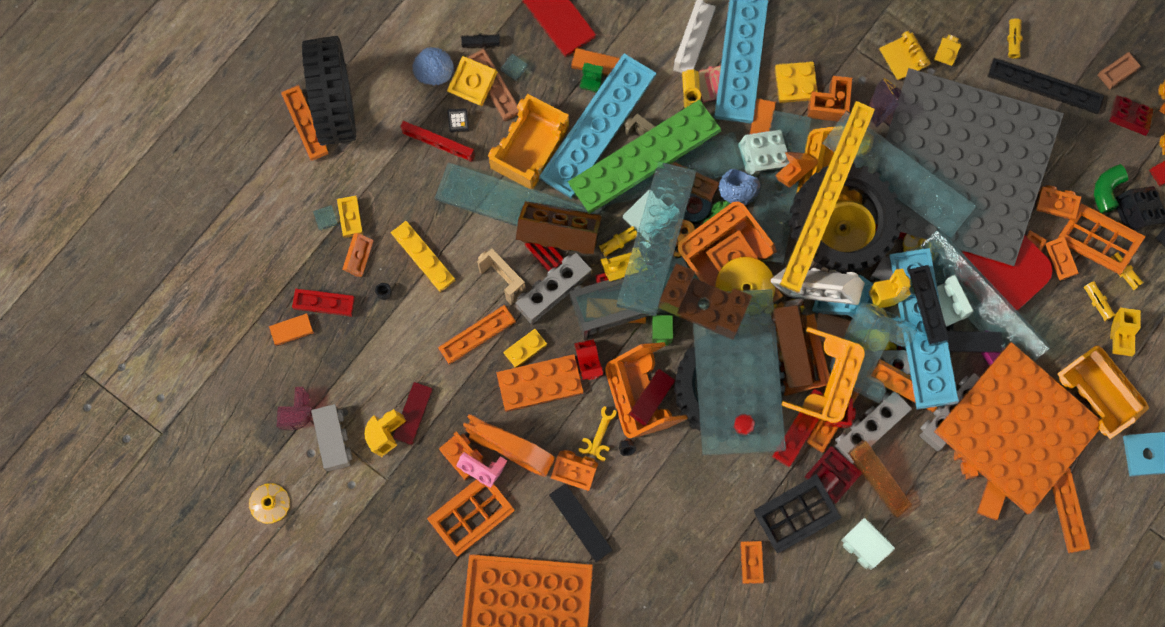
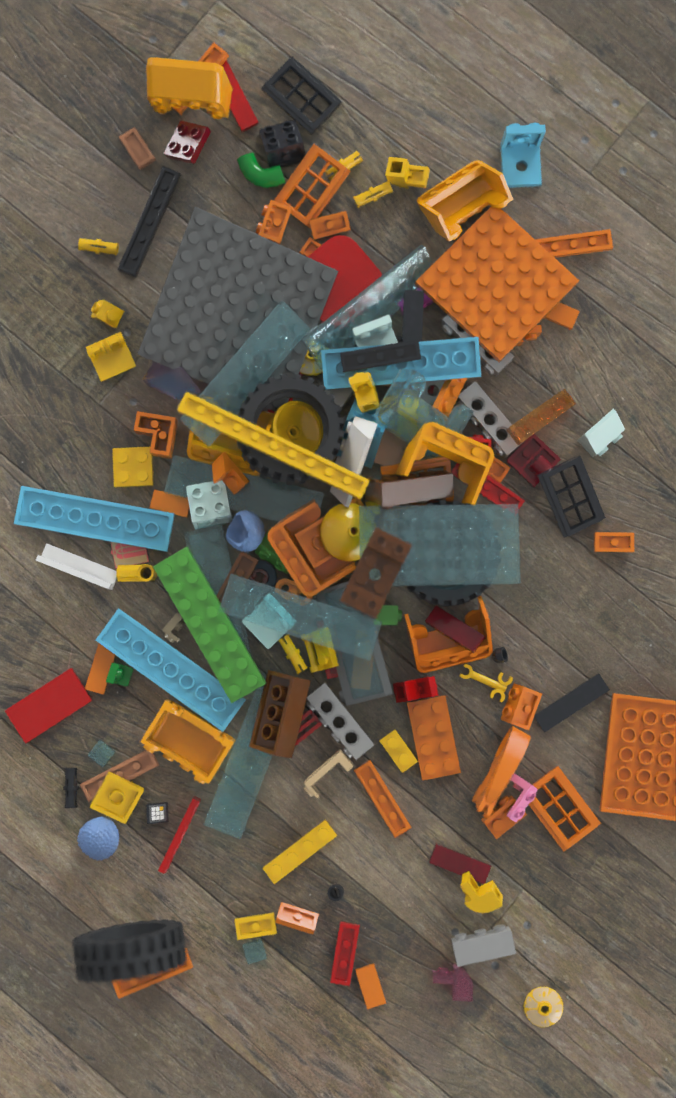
camera: 90 degrees left, 10 degrees up
(744, 424) = (495, 542): red tile -> none

